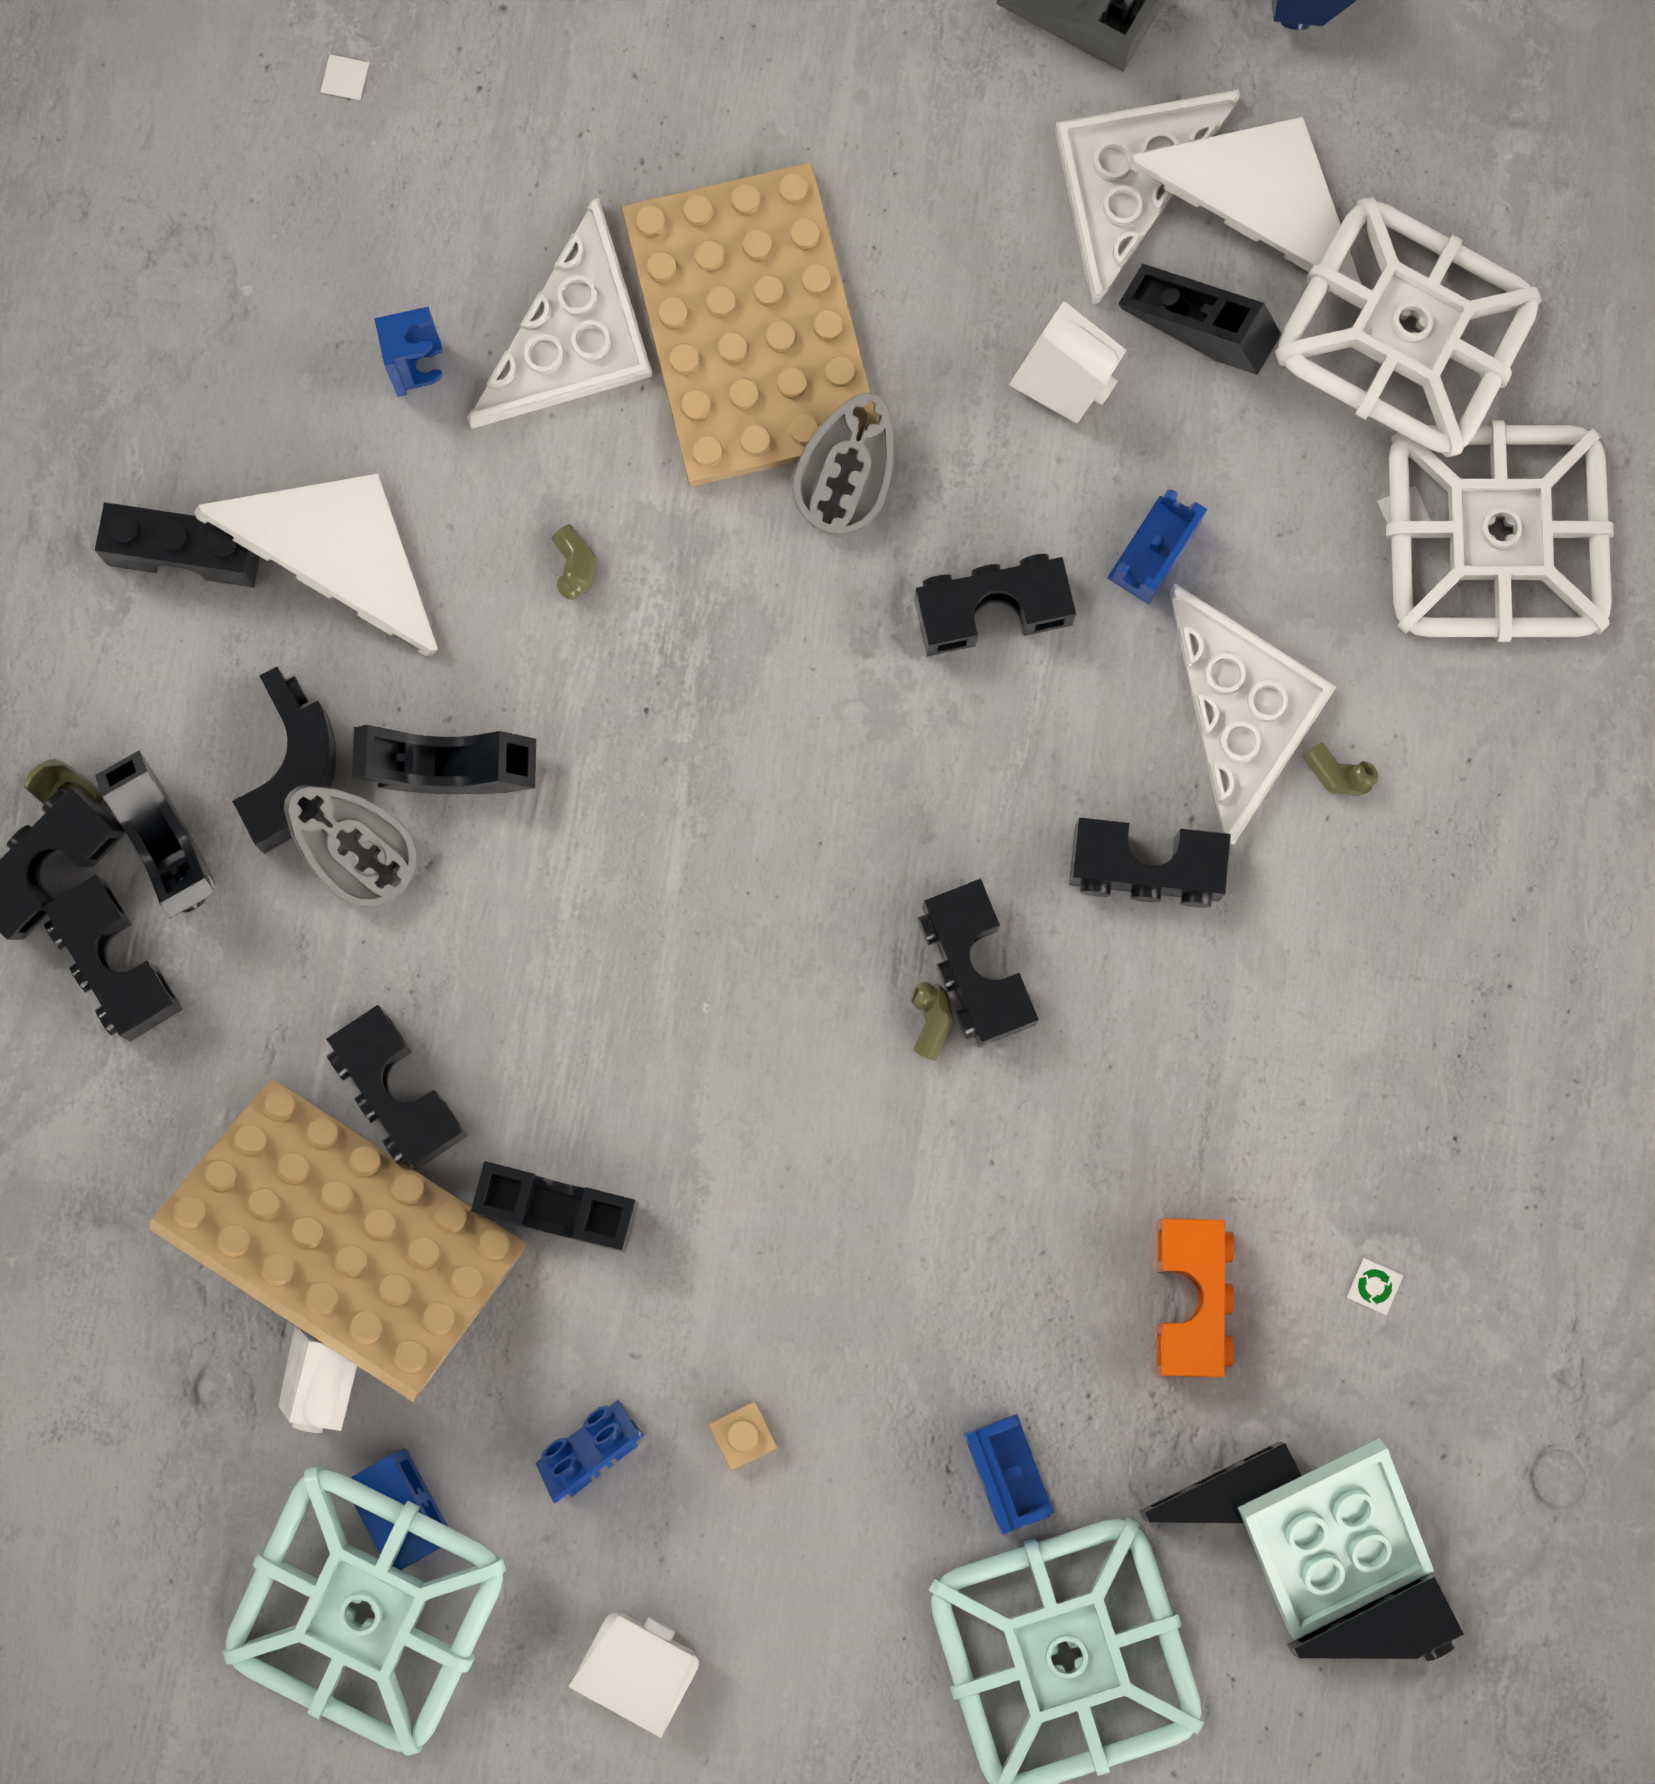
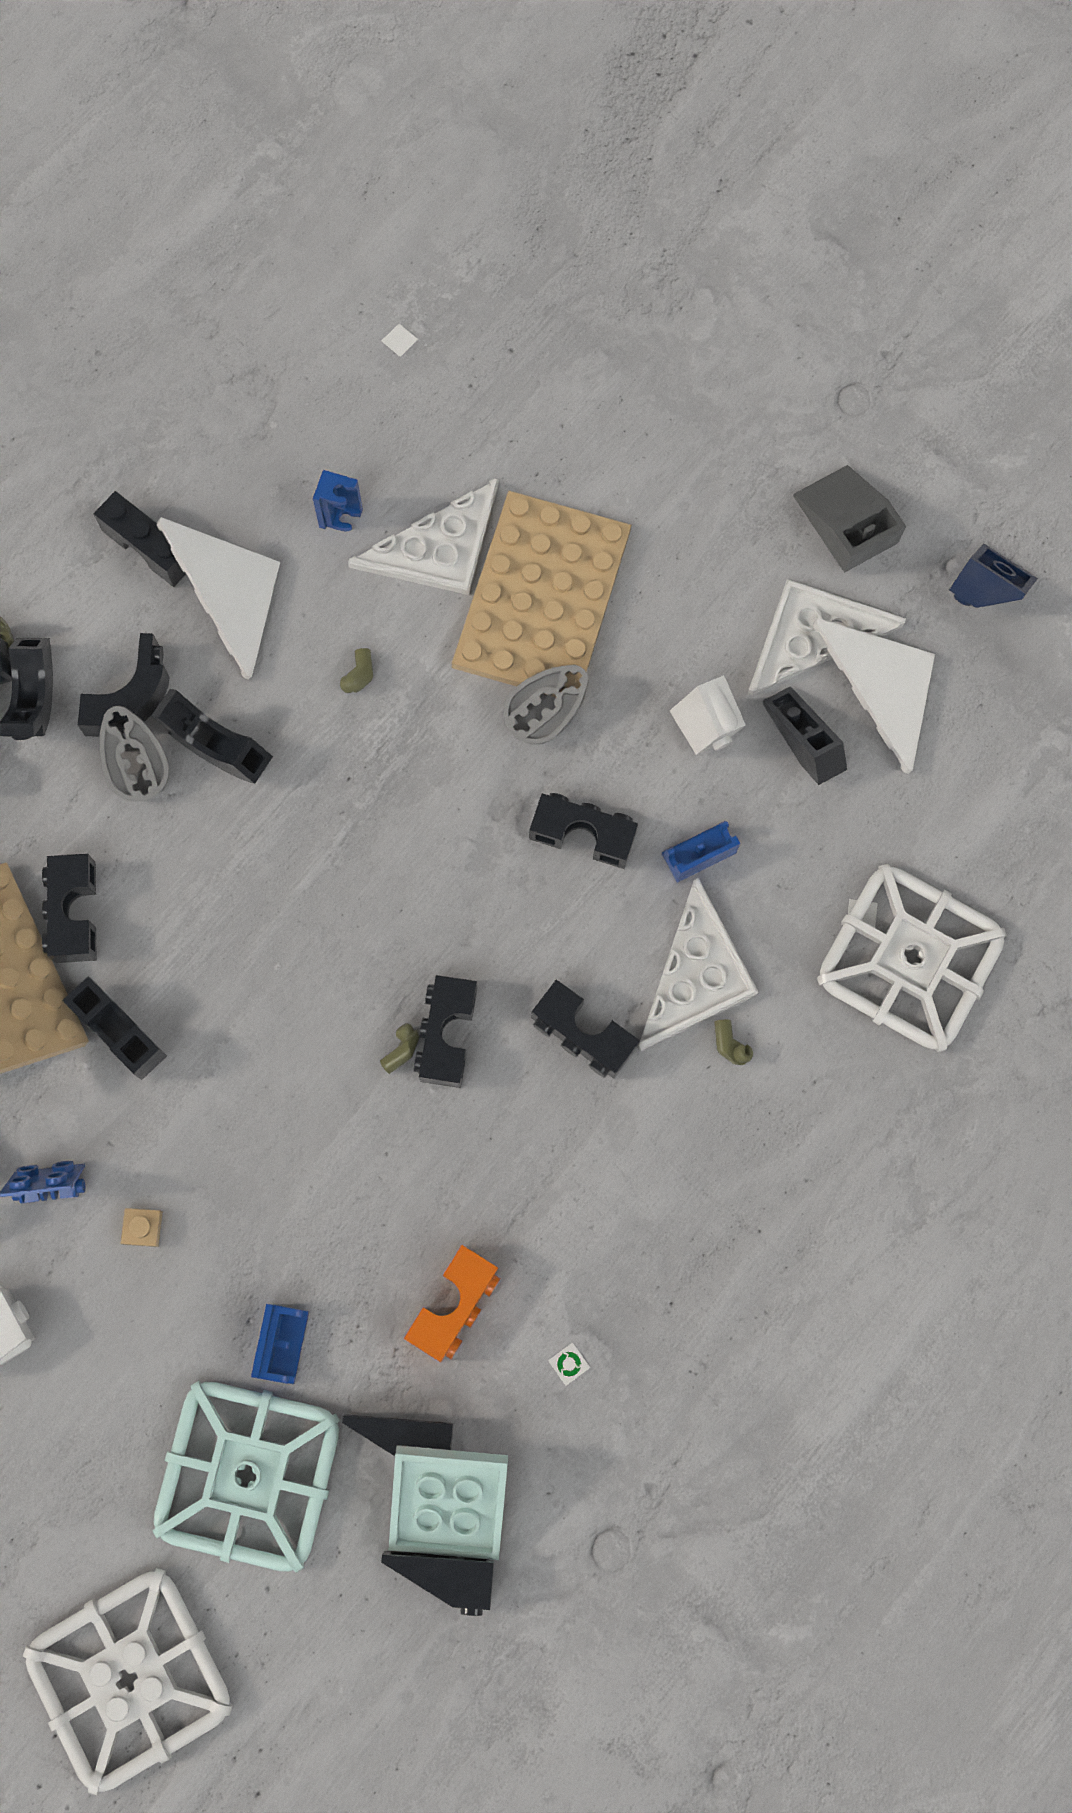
camera: 30 degrees right, 5 degrees down
(1379, 335) = (919, 825): white plate -> none

